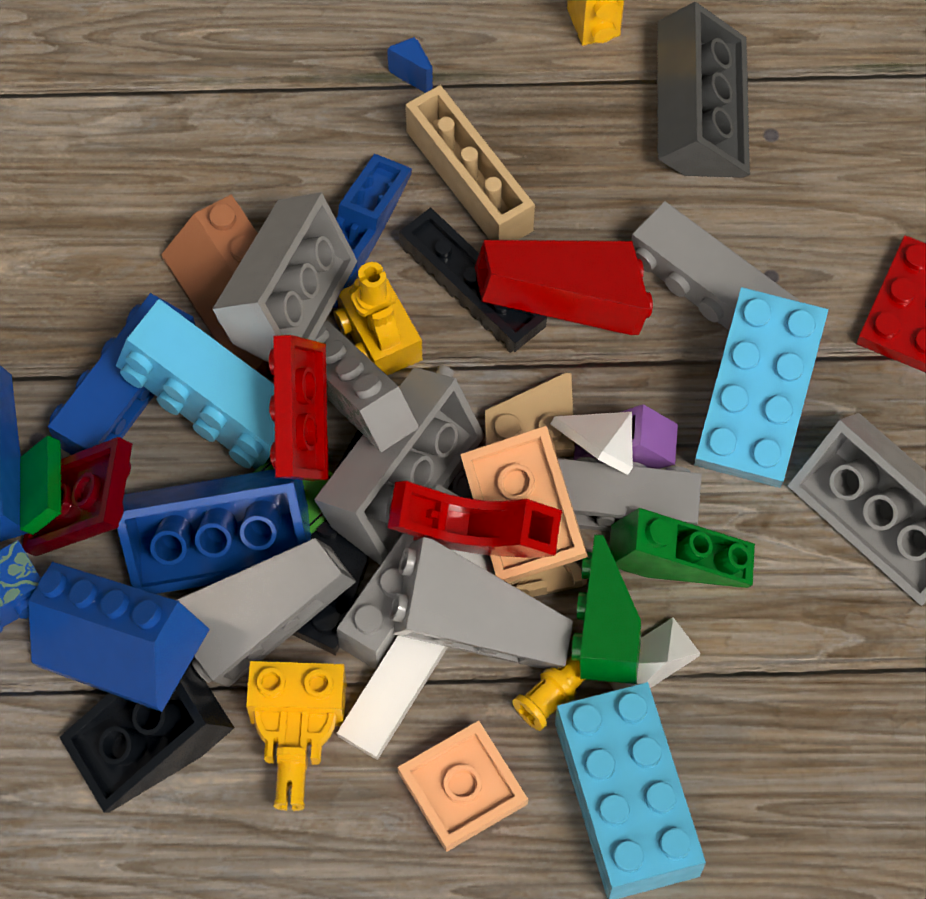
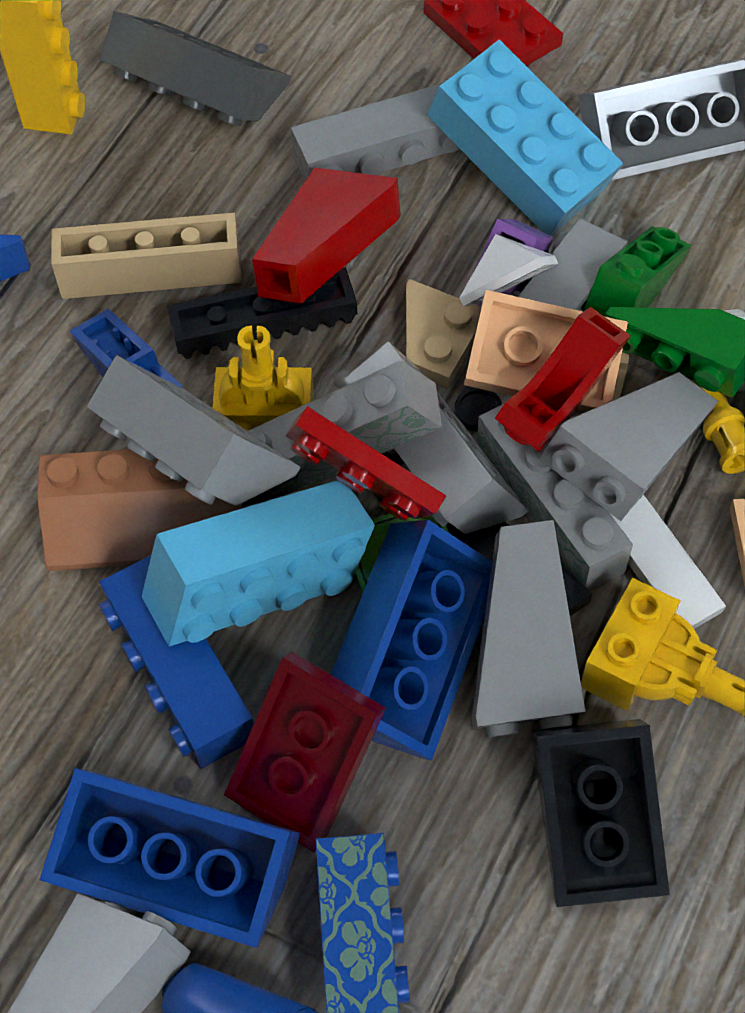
camera: 60 degrees left, 5 degrees down
(40, 485) = (259, 789): green tile -> none
(112, 635) = (495, 781): blue slope -> none

